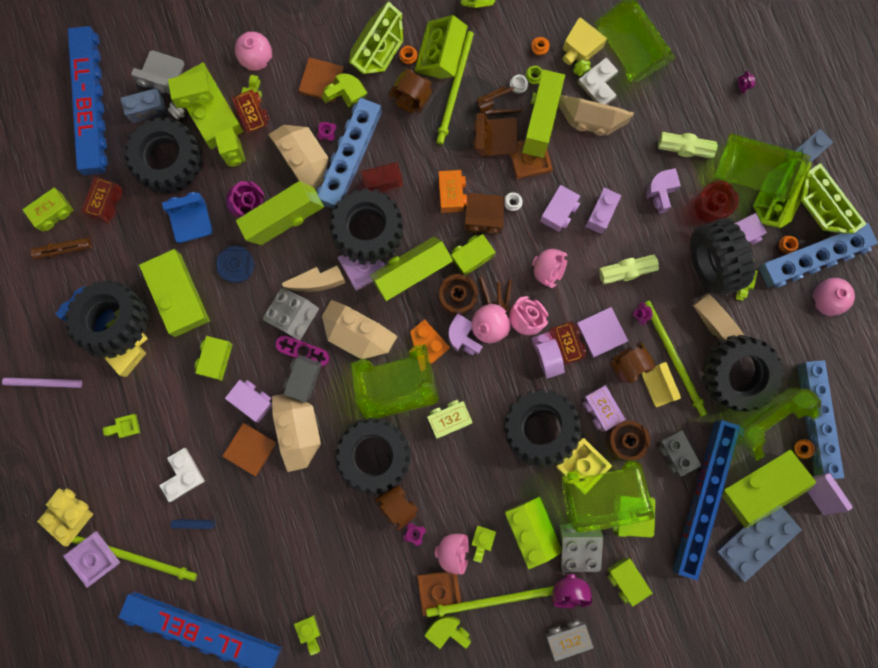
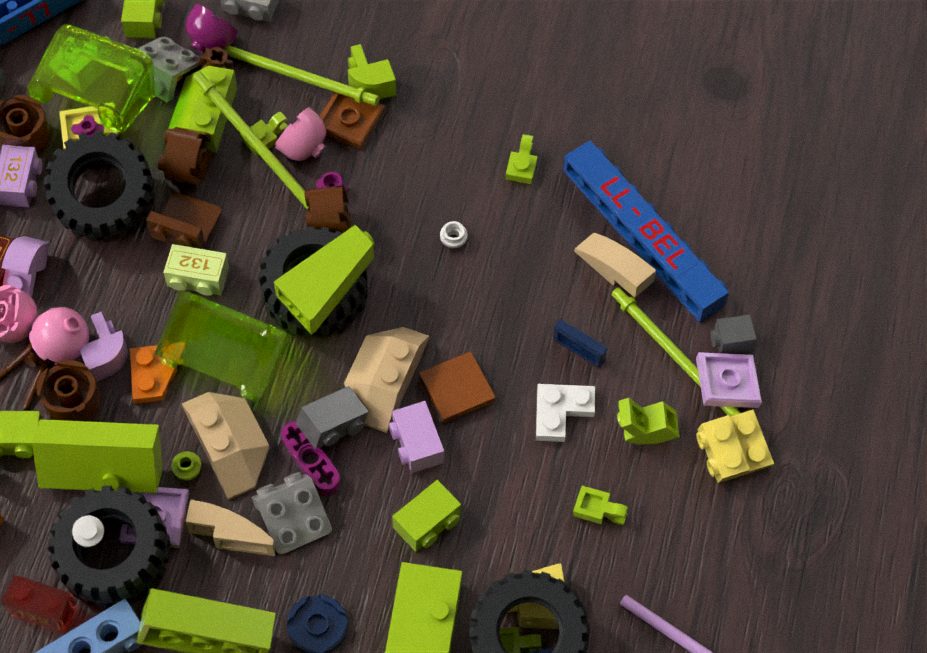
camera: 145 degrees left, 20 degrees down
(103, 592) = (734, 335): none -> dark grey brick
(121, 497) = (647, 424): none -> lime brick
(204, 596) = (616, 263): none -> tan slope
(310, 550) = (453, 228): none -> white plate
(356, 446) = (325, 277): none -> lime slope
(368, 307) = (189, 472): none -> lime plate
(374, 216) = (88, 531): none -> white plate
(481, 447) = (184, 221): none -> reddish brown bracket
(511, 487) = (185, 155): none -> reddish brown brick
(528, 539) = (208, 88): none -> lime bar
(544, 575) = (216, 57): none -> reddish brown gear
(585, 467) = (87, 122): none -> magenta plate

